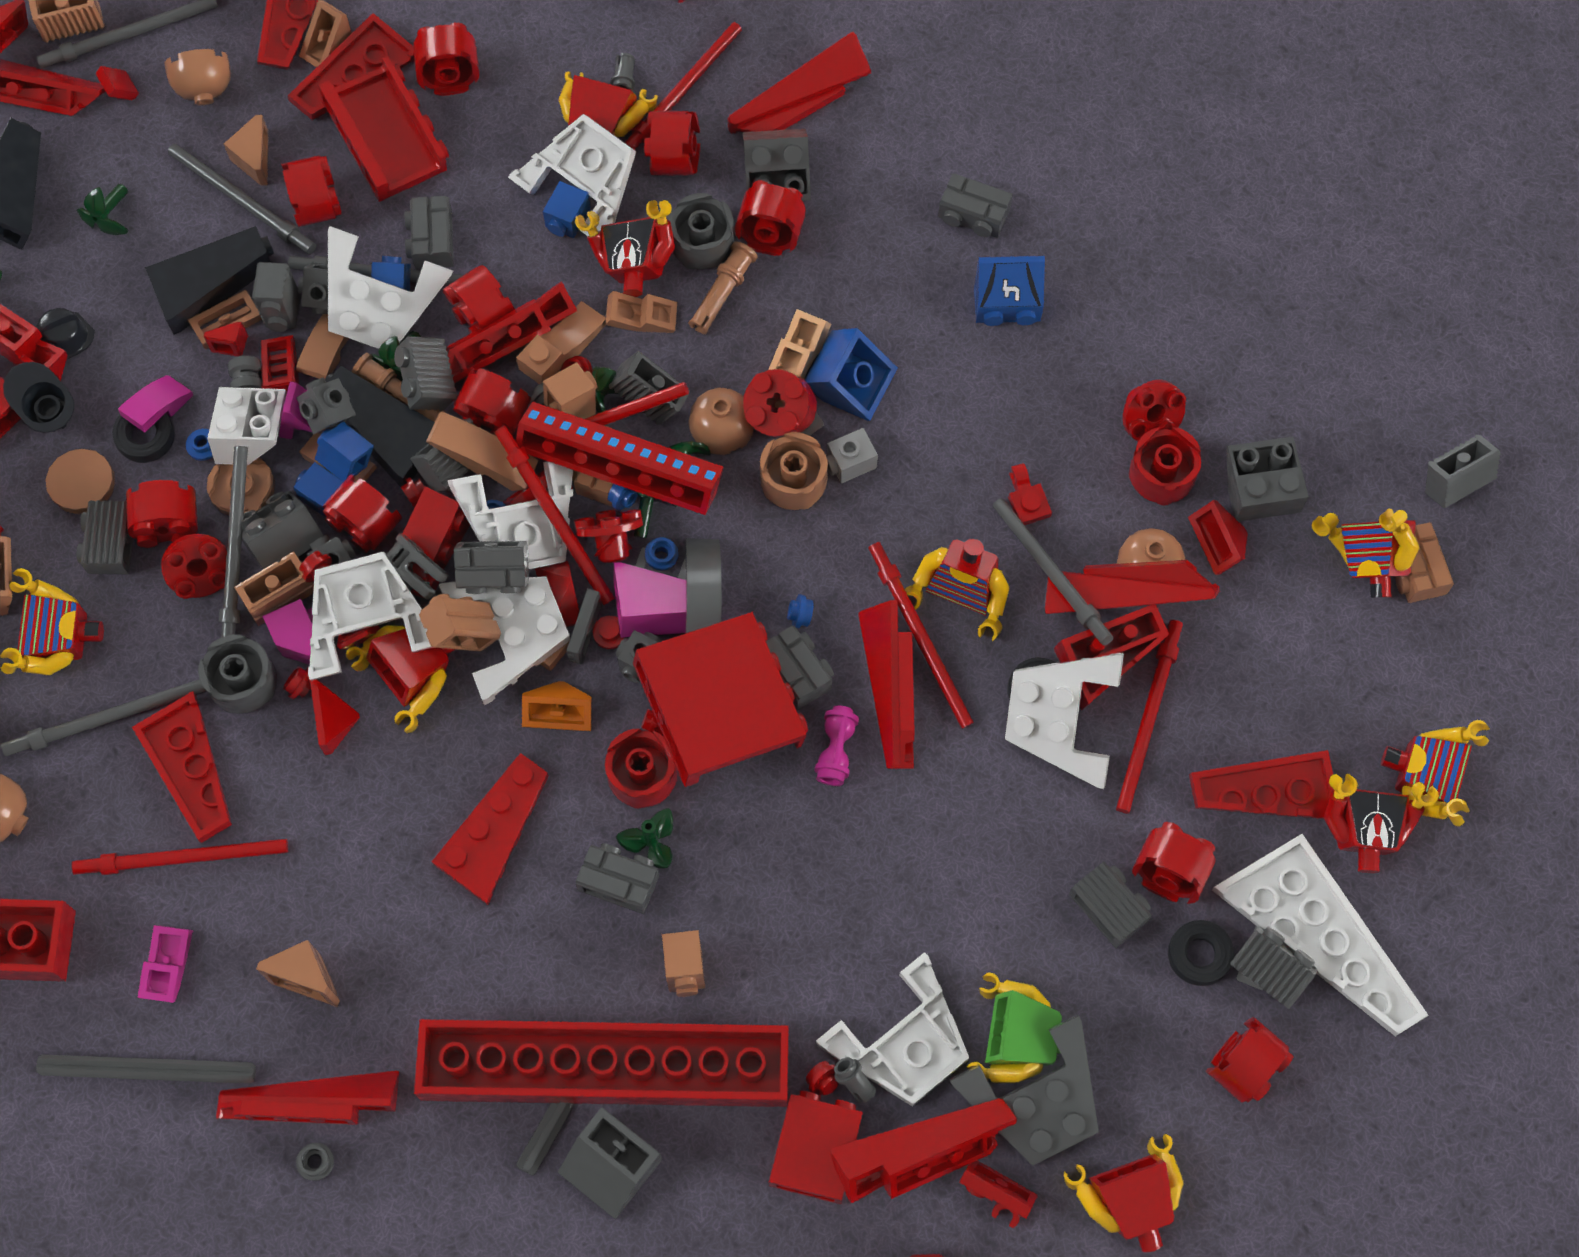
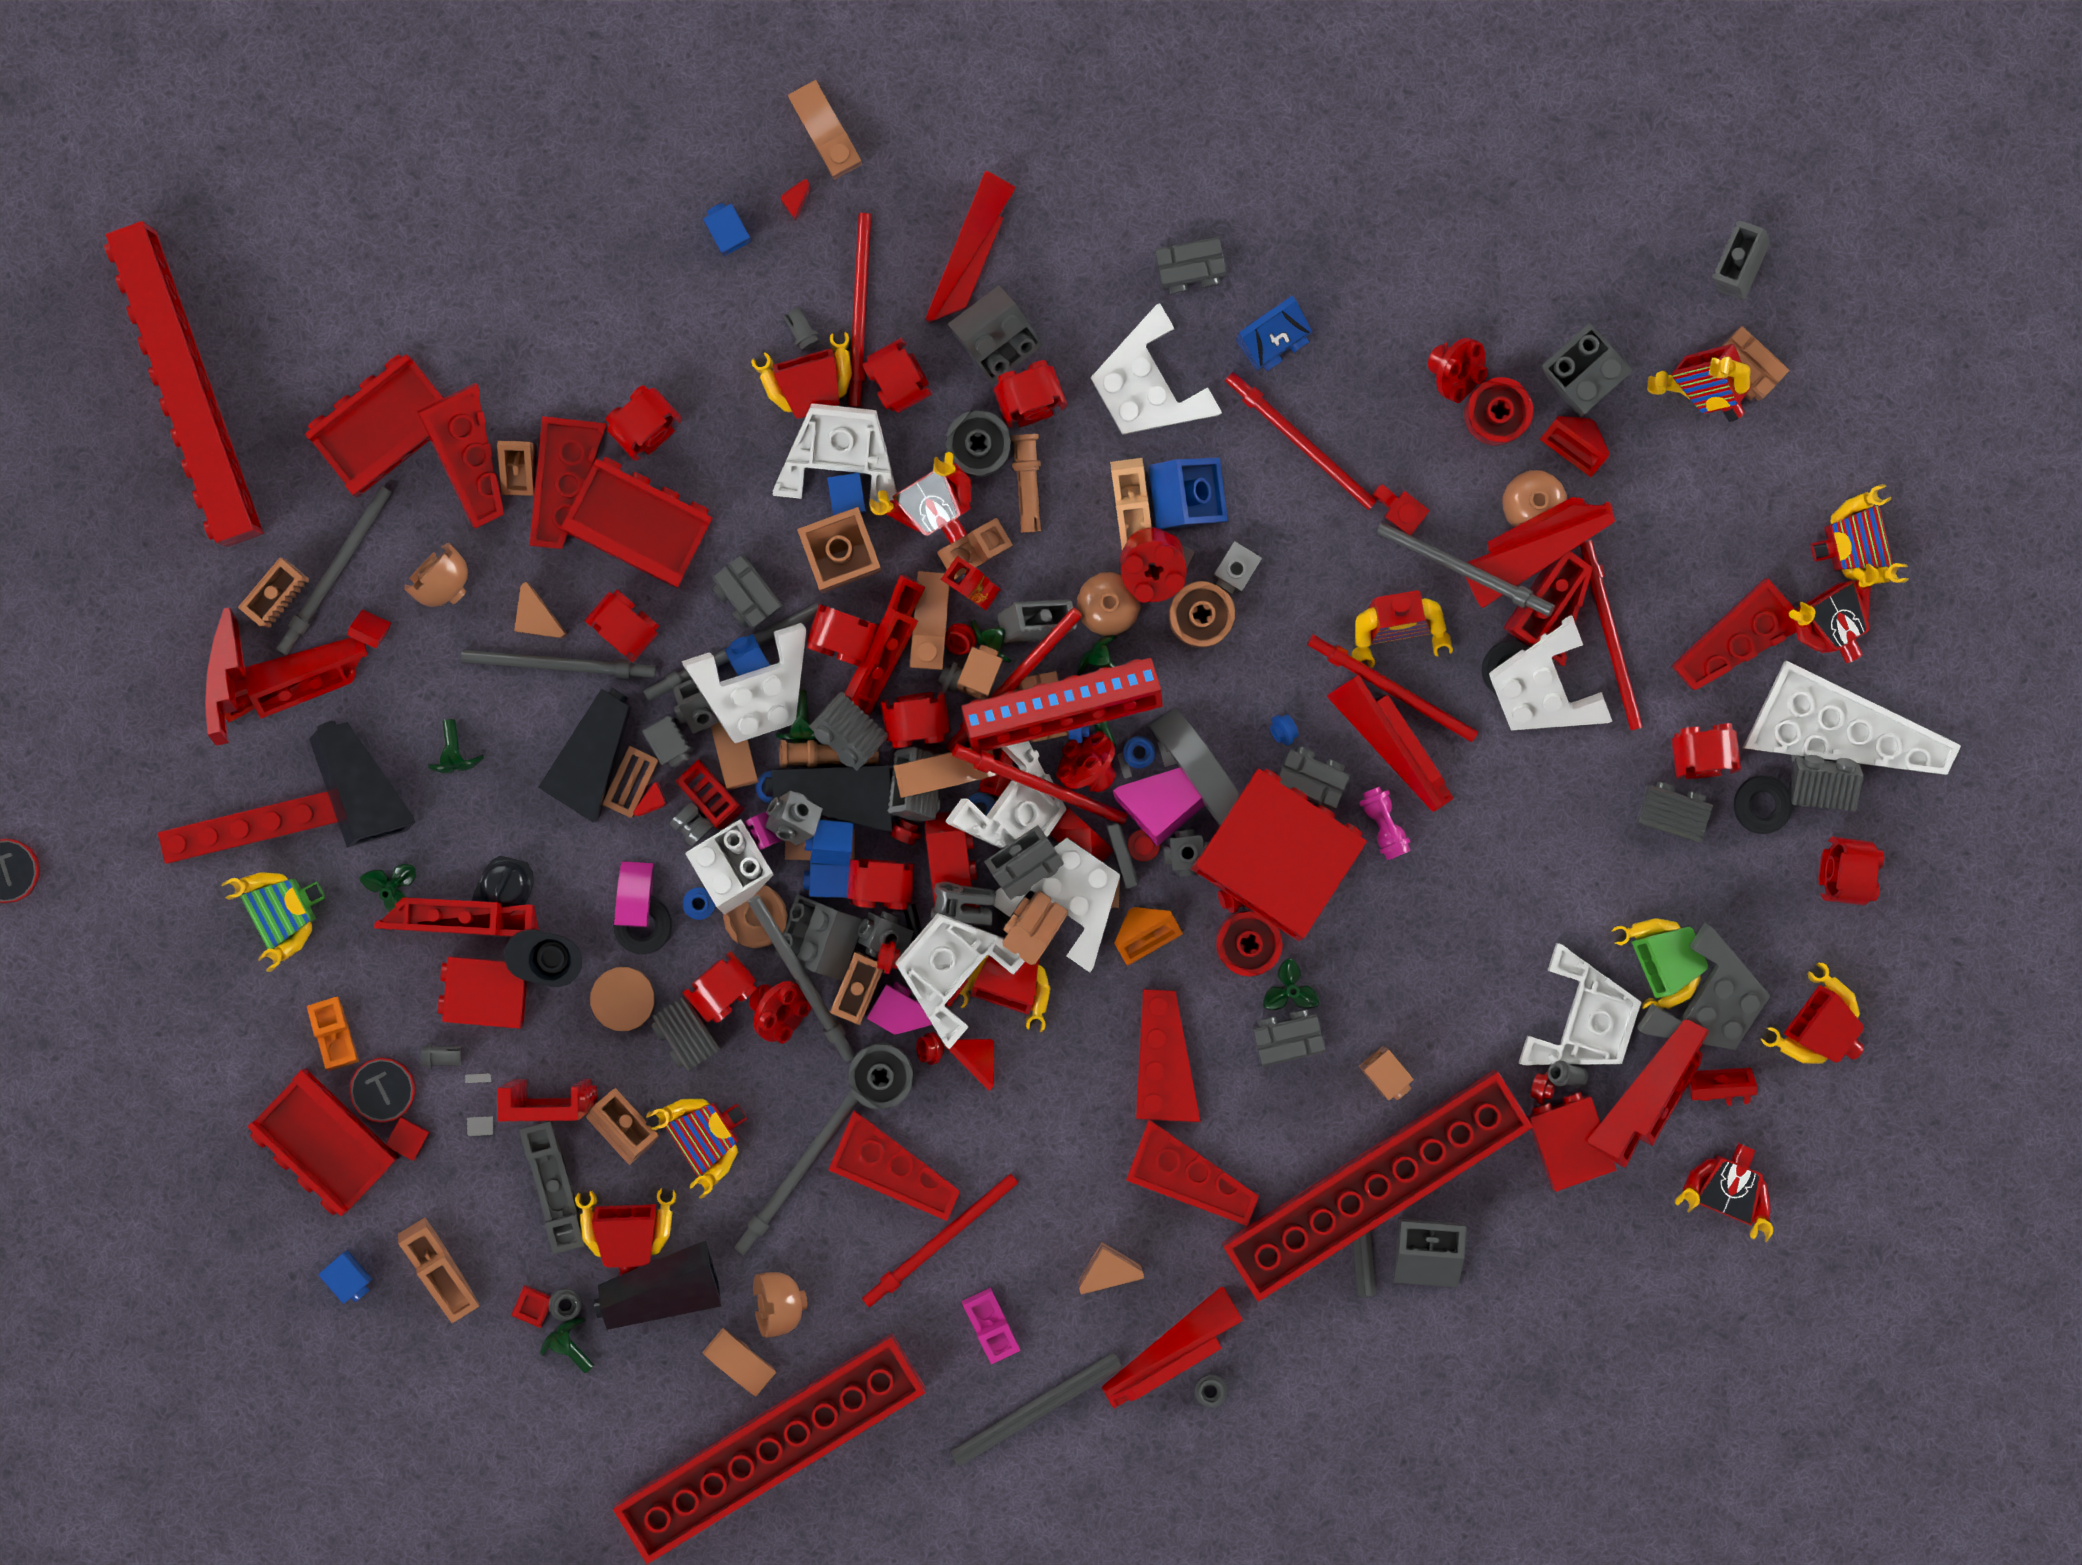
camera: 30 degrees left, 20 degrees up
(436, 938) = (1183, 1174): none -> red wing
(527, 242) = (839, 550): none -> nougat slope
(616, 329) = (974, 584): none -> red leg
(864, 275) = (1136, 389): none -> white wing
(959, 338) = (1253, 398): none -> red bar

